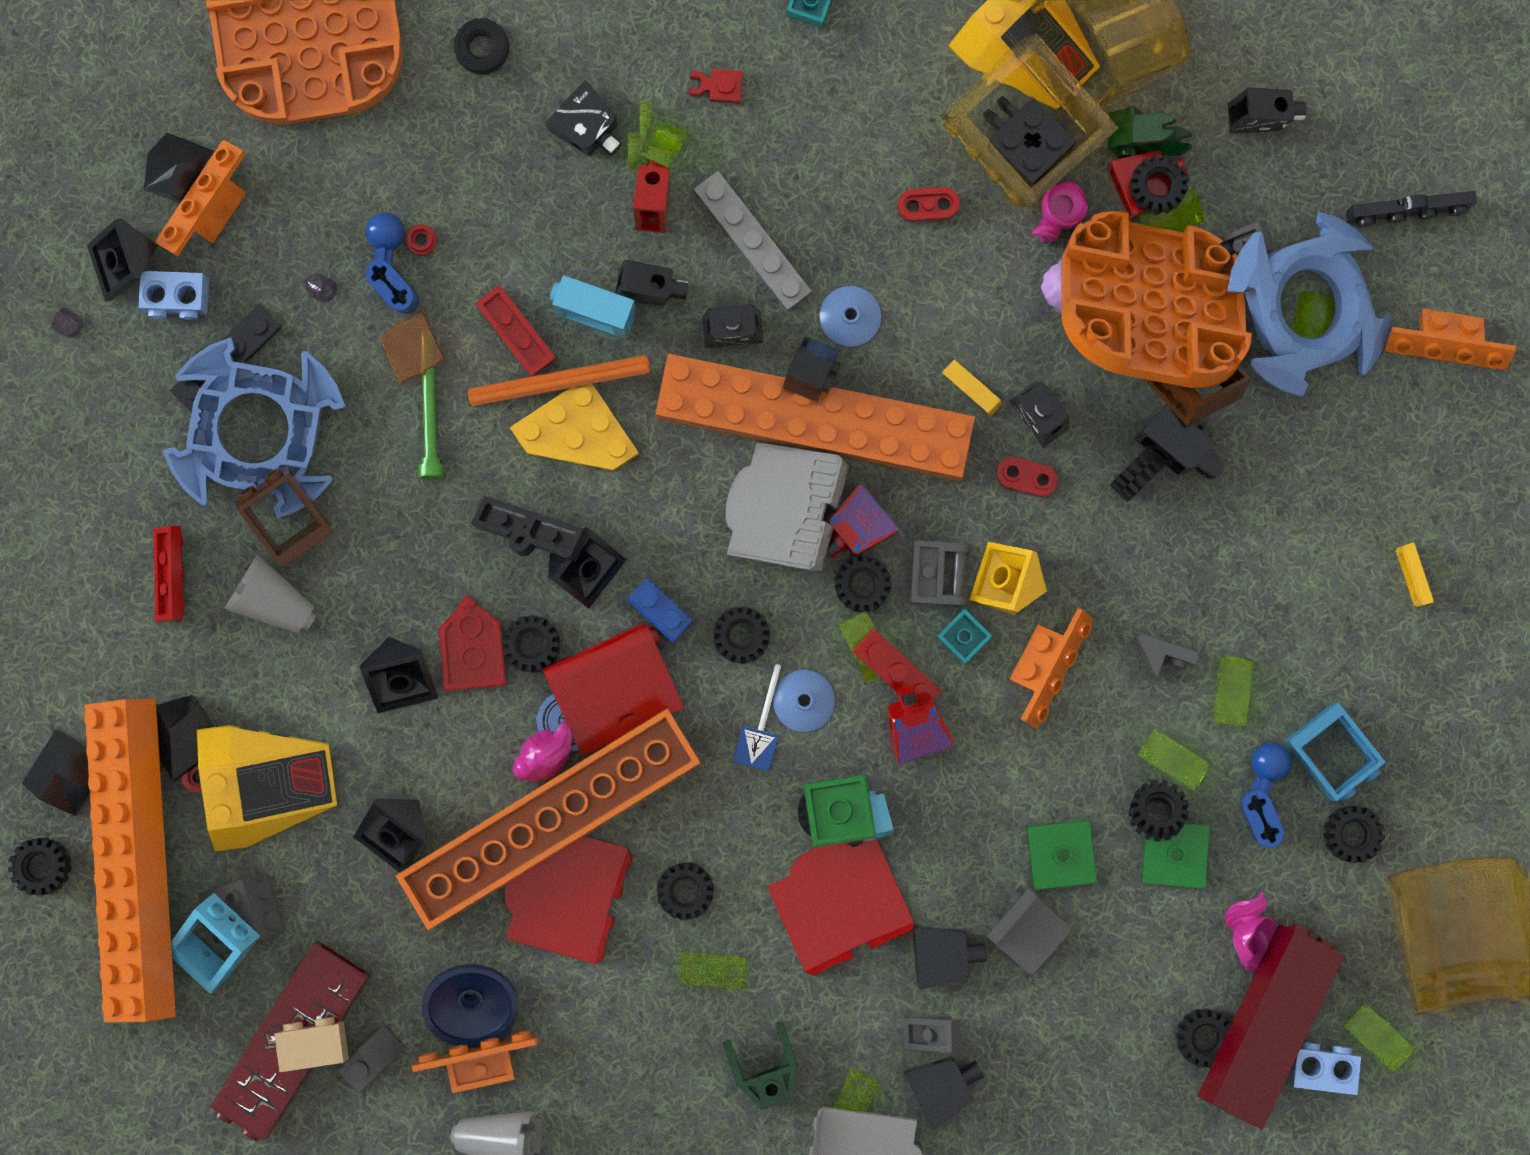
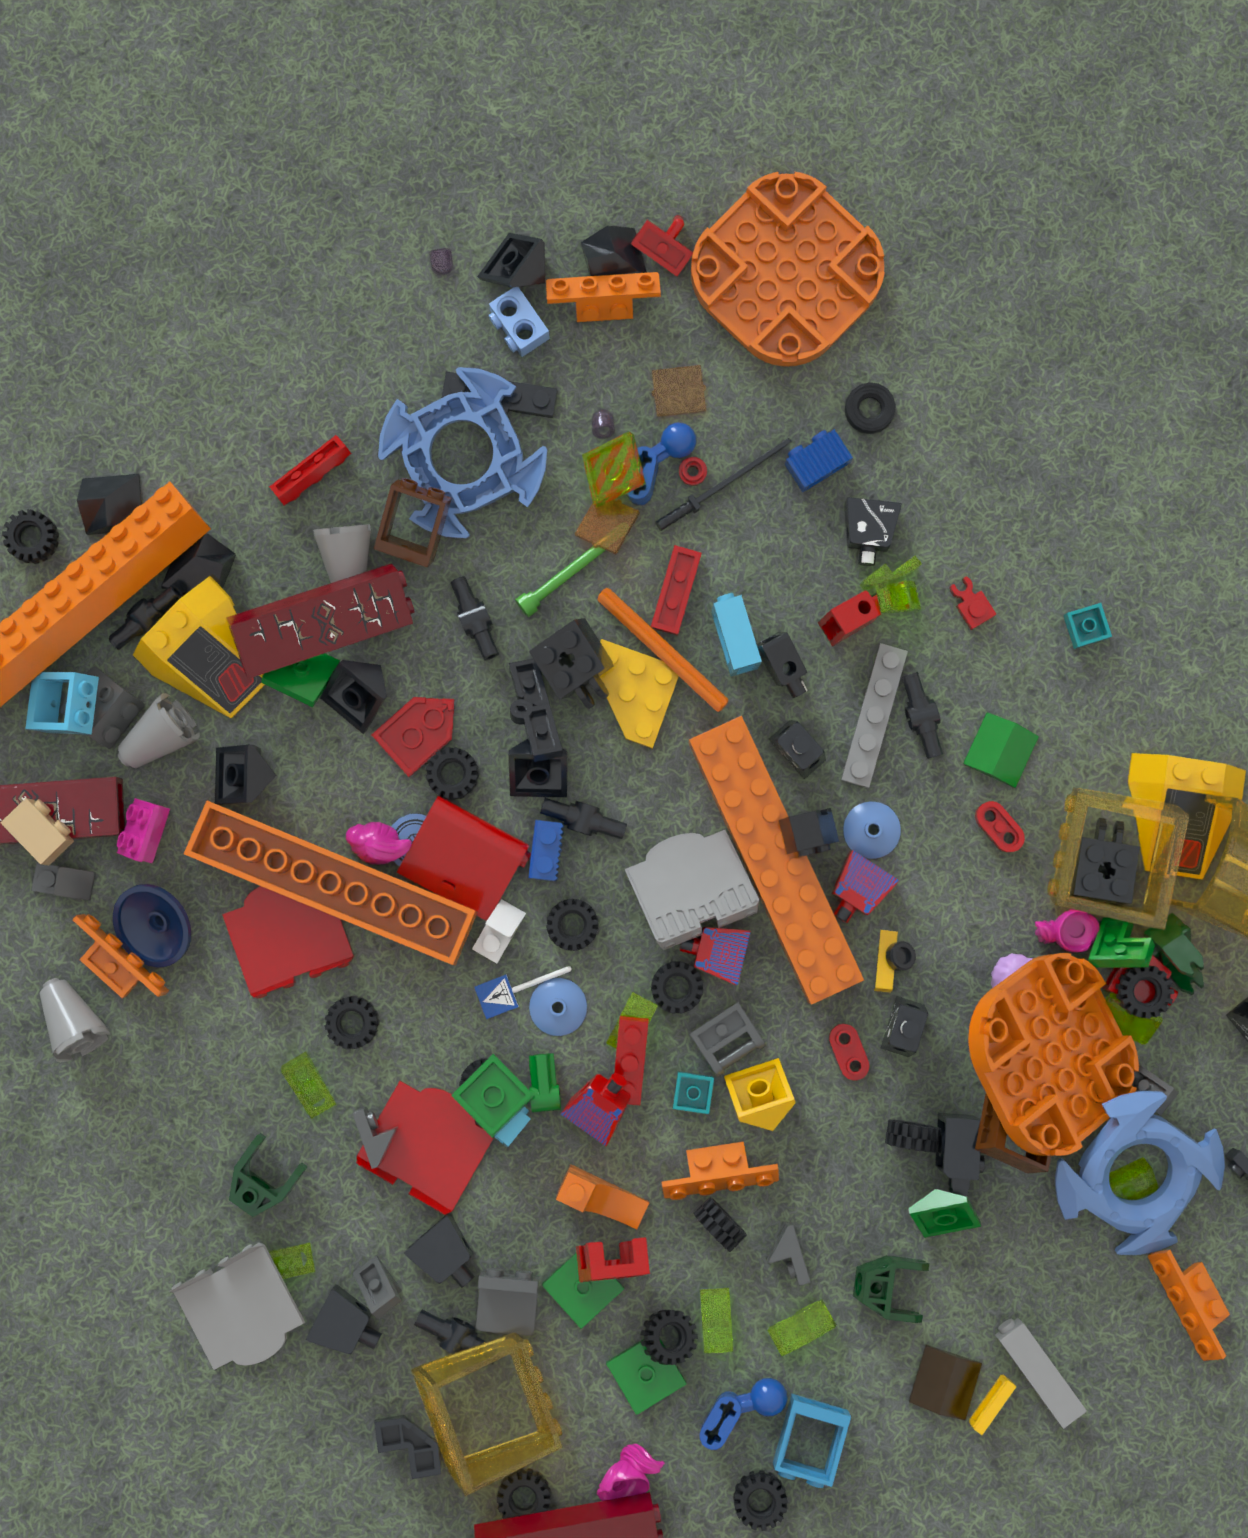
camera: 55 degrees right, 0 degrees up
(189, 814) = (144, 616): none -> black pin
(202, 118) = (663, 246): none -> red plate
(302, 878) = (158, 733): none -> light grey cone
(310, 659) = (321, 620): none -> dark red brick
(340, 200) = (678, 390): none -> clear orange piece
(342, 712) = (303, 679): none -> green plate
(368, 306) = (613, 469): none -> clear neon green tile
(379, 954) = (142, 831): none -> dark pink bracket
(409, 524) = (474, 618): none -> black pin
(451, 261) = (694, 504): none -> black sword
(493, 124) = (818, 459): none -> blue brick
(523, 451) = (589, 663): none -> black hinge
(655, 557) = (583, 818): none -> black pin
(700, 704) = (499, 931): none -> white slope
(783, 198) = (922, 715): none -> black pin
(807, 945) = (374, 1144): none -> dark grey slope
(862, 154) = (1001, 749): none -> green slope
(862, 760) = (544, 1083): none -> green piece
(891, 361) = (860, 886): none -> torso
(977, 371) = (900, 956): none -> black tile
(996, 781) = (592, 1194): none -> orange arch
(1025, 996) = (452, 1333): none -> black pin
(1072, 795) = (632, 1261): none -> red panel
(1093, 695) = (720, 1224): none -> black tyre
(1099, 1096) = (402, 1433): none -> black brick
(1105, 181) = (1116, 949): none -> green plate
(1157, 1043) = (498, 1461): none -> clear yellow windscreen
(1223, 495) = (943, 1213): none -> green slope
(1242, 599) = (881, 1275): none -> dark green piece
(1368, 602) = (945, 1383): none -> dark brown slope
(1416, 514) = (1040, 1372): none -> light grey brick

